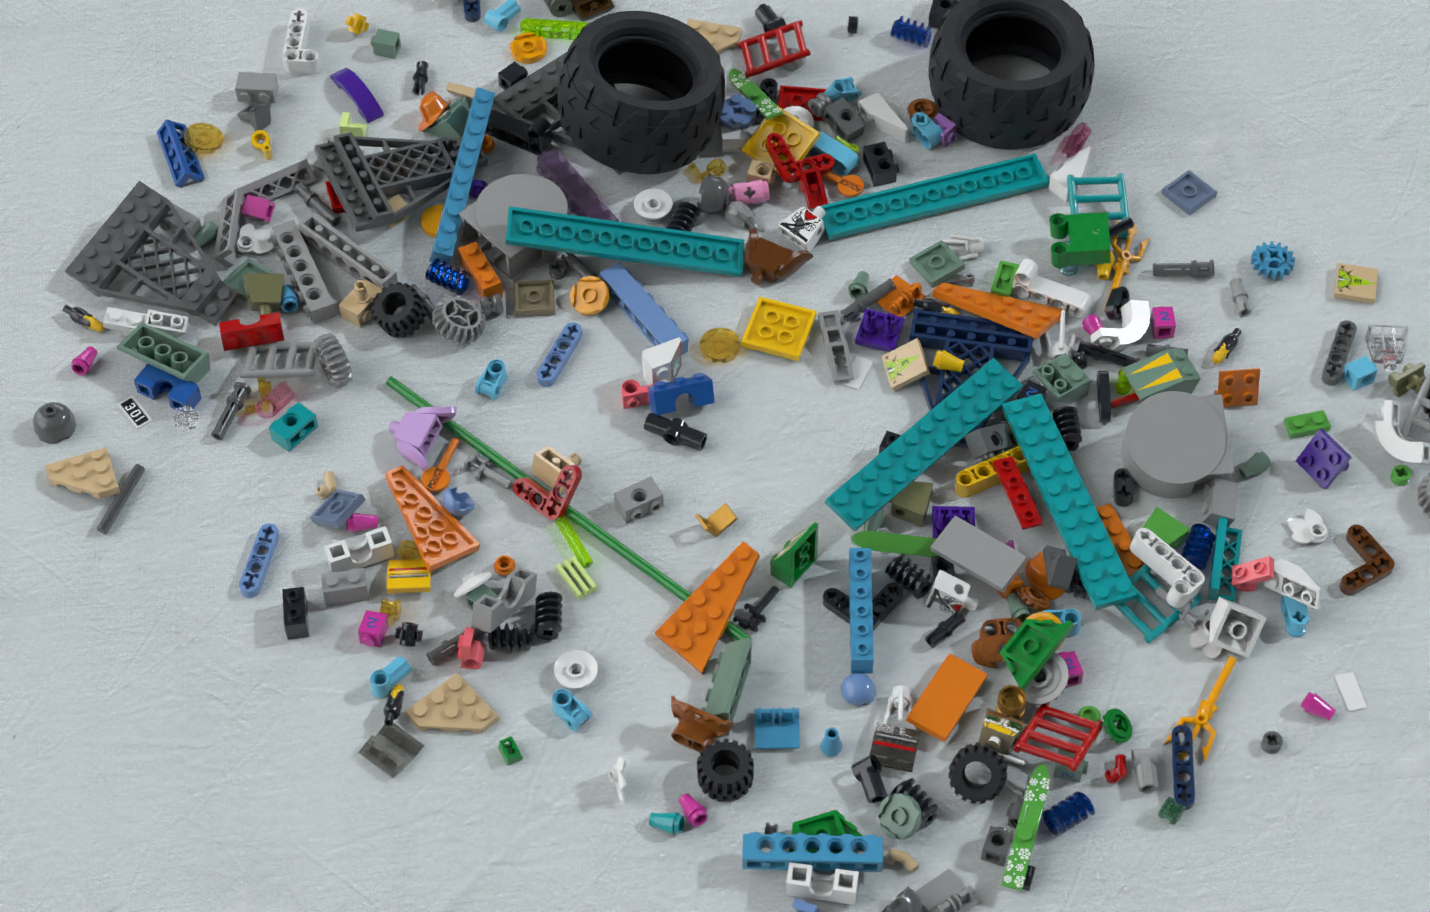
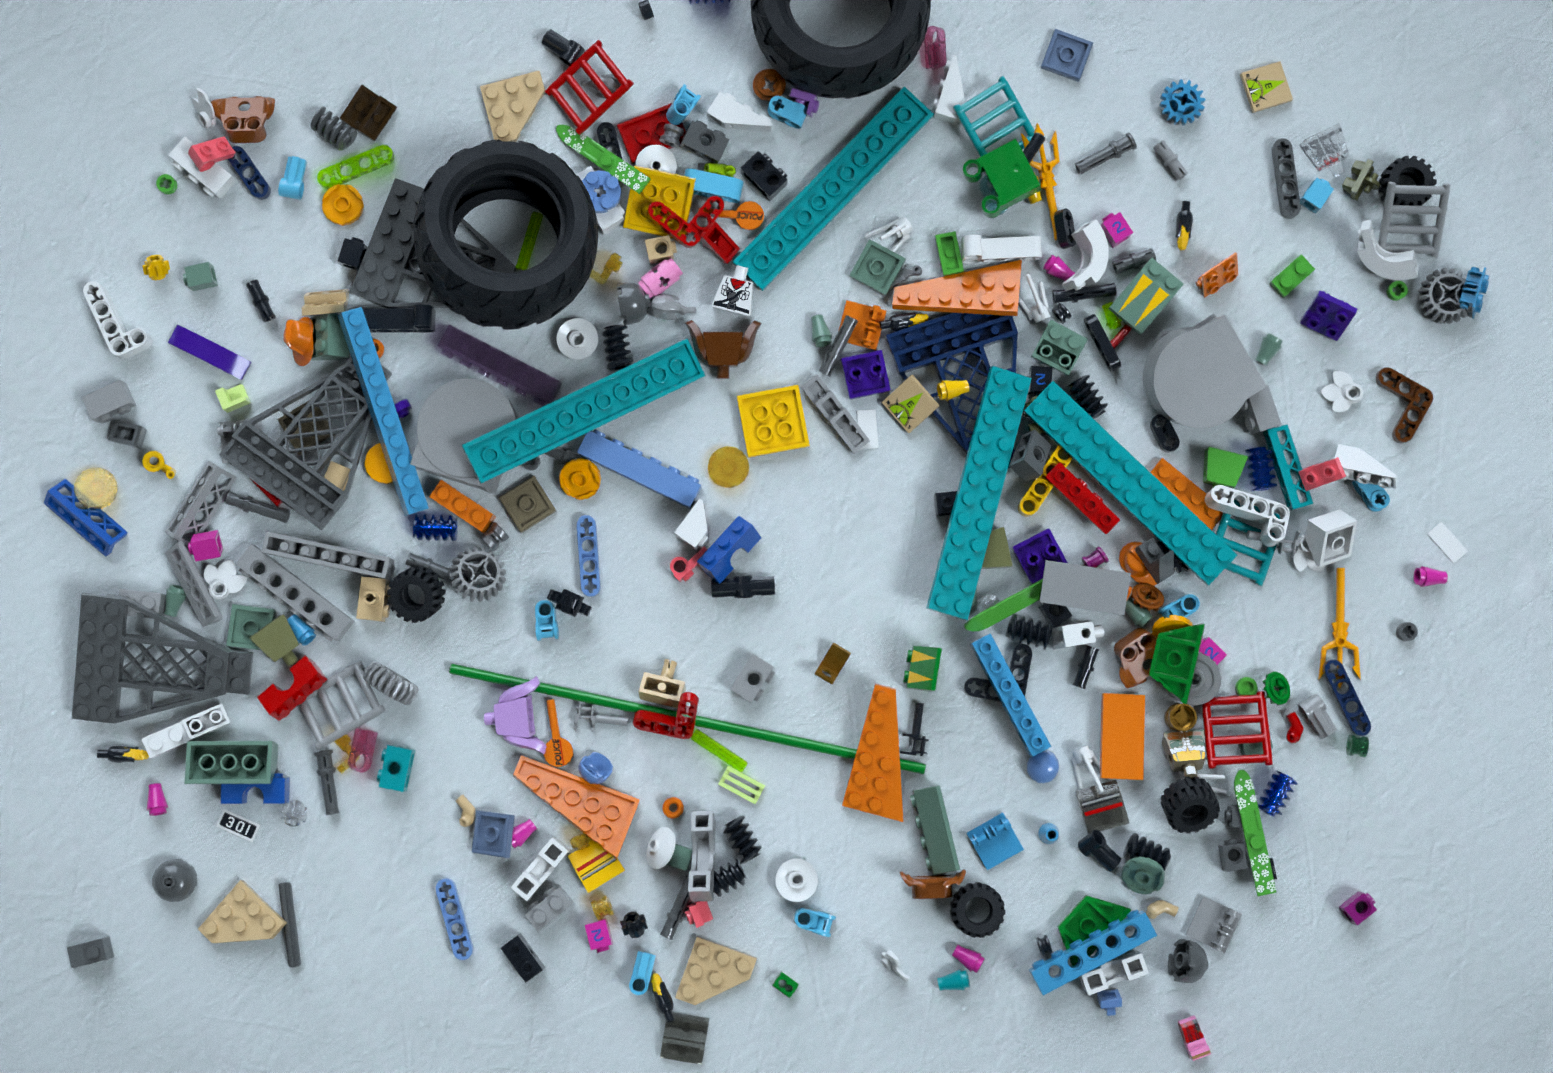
camera: 30 degrees left, 30 degrees up
(520, 370) = (569, 602): none -> black gear

